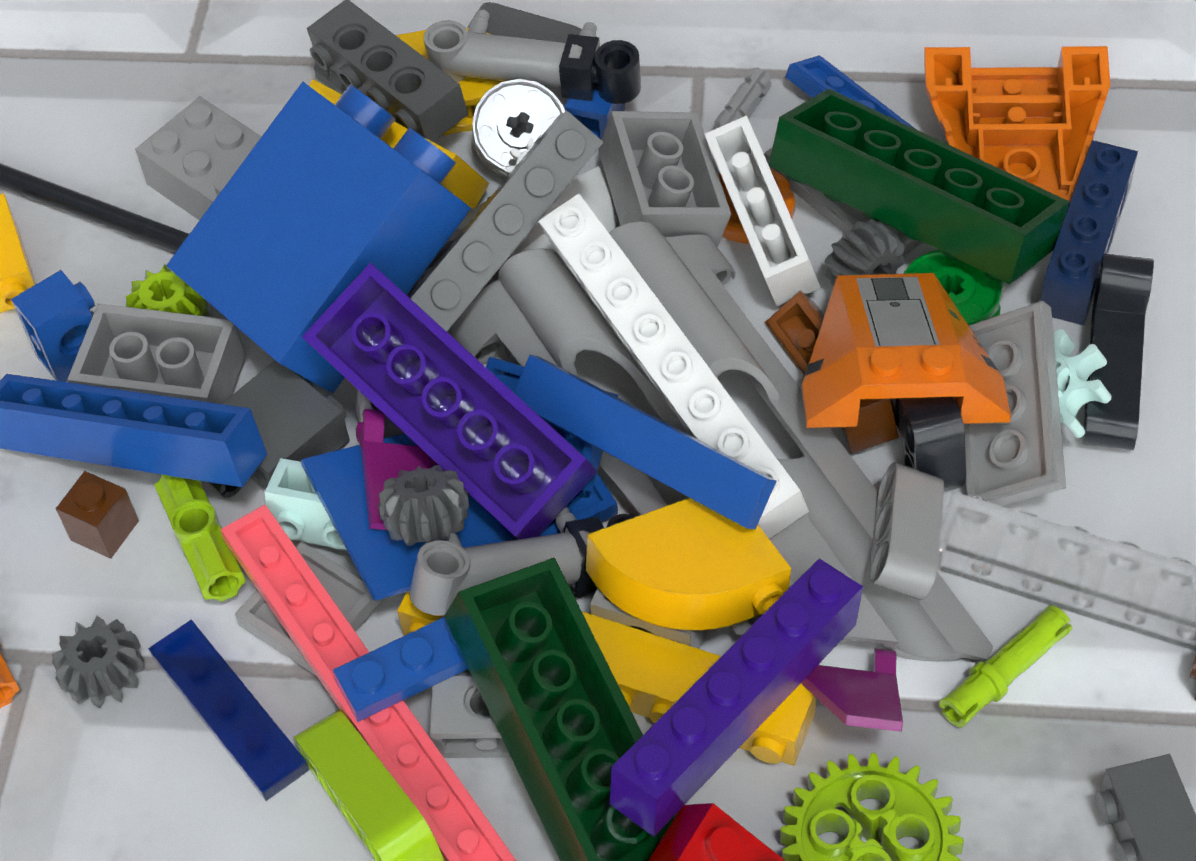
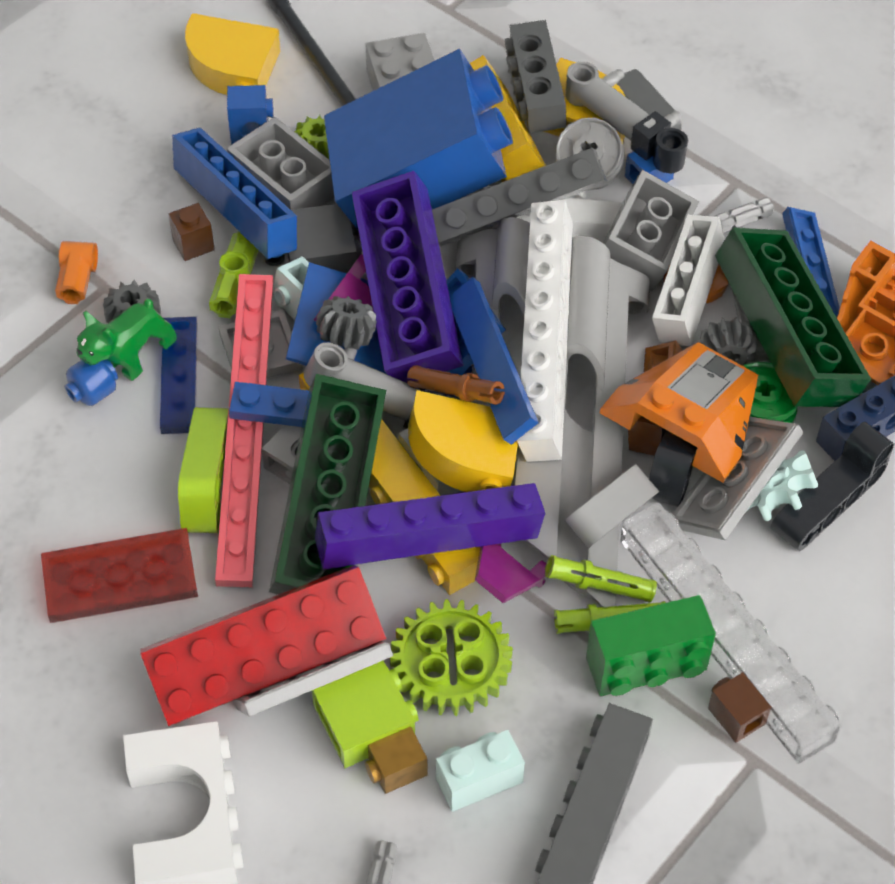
camera: 30 degrees right, 0 degrees up
(122, 790) = (90, 382): none -> blue head
(132, 706) = (124, 337): none -> green animal
(645, 492) = (466, 387): none -> dark orange pin
(921, 642) = (561, 569): none -> lime pin
(1092, 670) = (650, 646): none -> green brick

